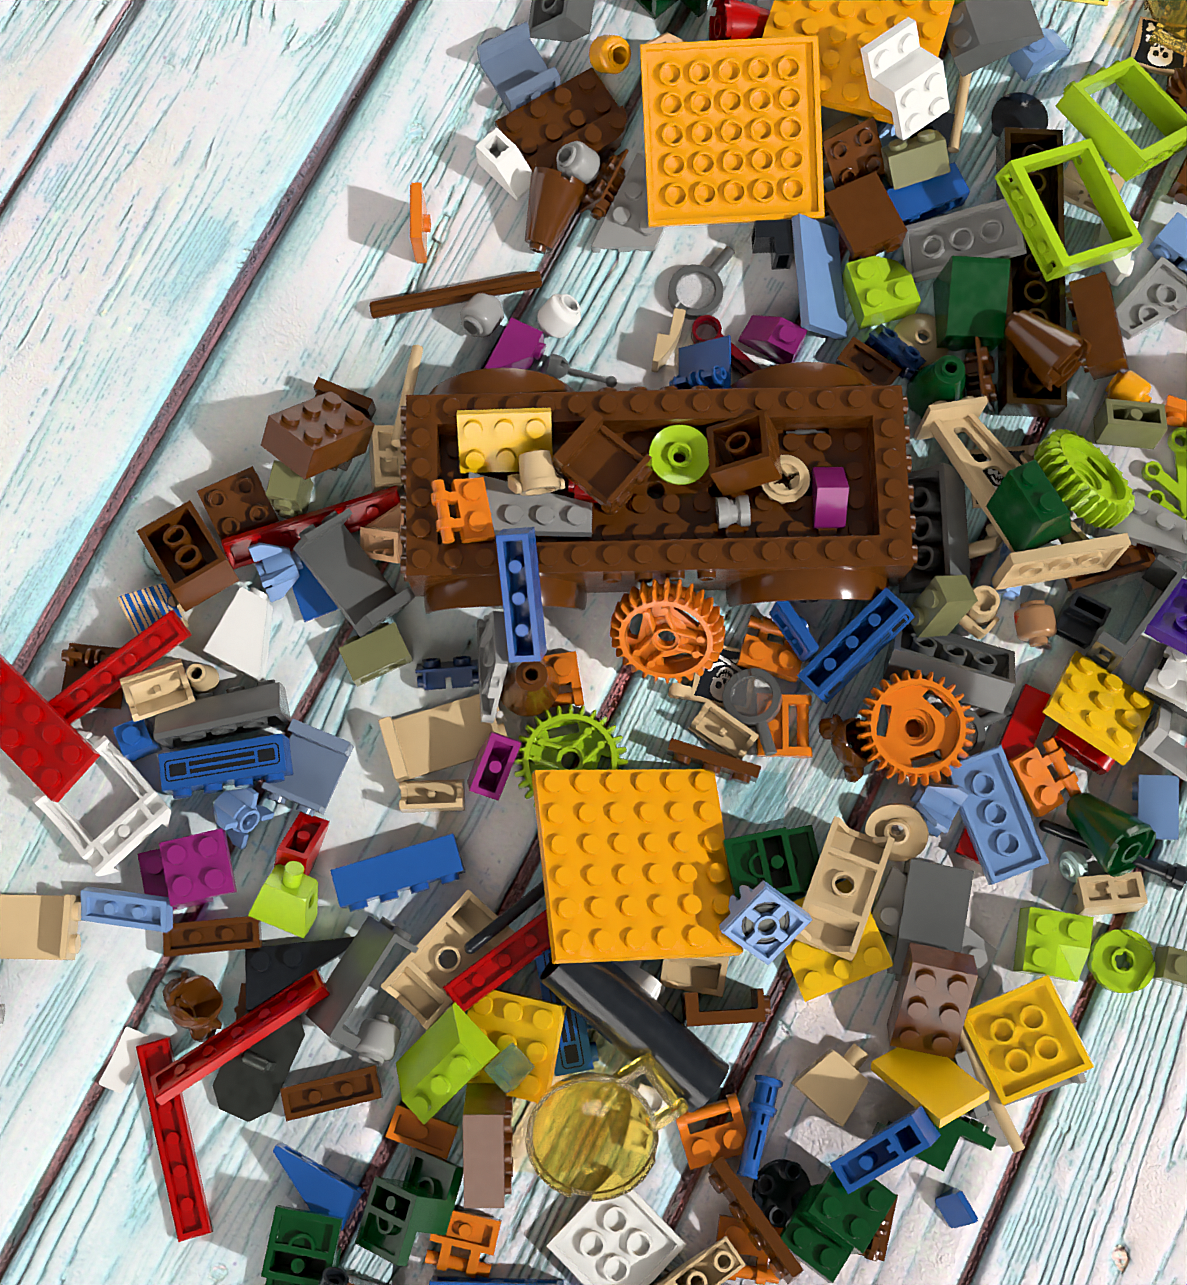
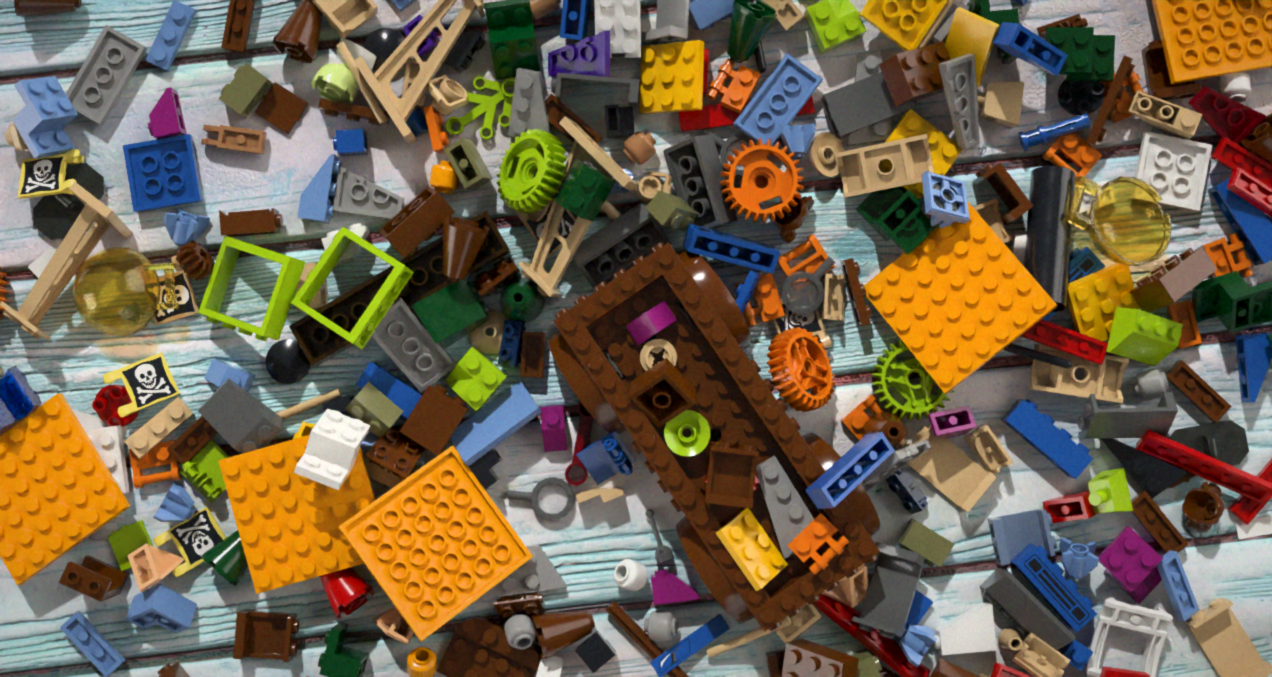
camera: 125 degrees left, 10 degrees up
(440, 330) = (689, 645): none -> blue sticker
(502, 230) = (595, 651): none -> black piece
(509, 1068) = (1122, 295): clear light blue slope -> none
(536, 475) = (765, 513): tan piece -> none
(732, 511) = (702, 376): light grey wheel -> none
(875, 1033) = (961, 94): none -> light grey wing
(1073, 865) = (778, 37): light aqua plate -> none

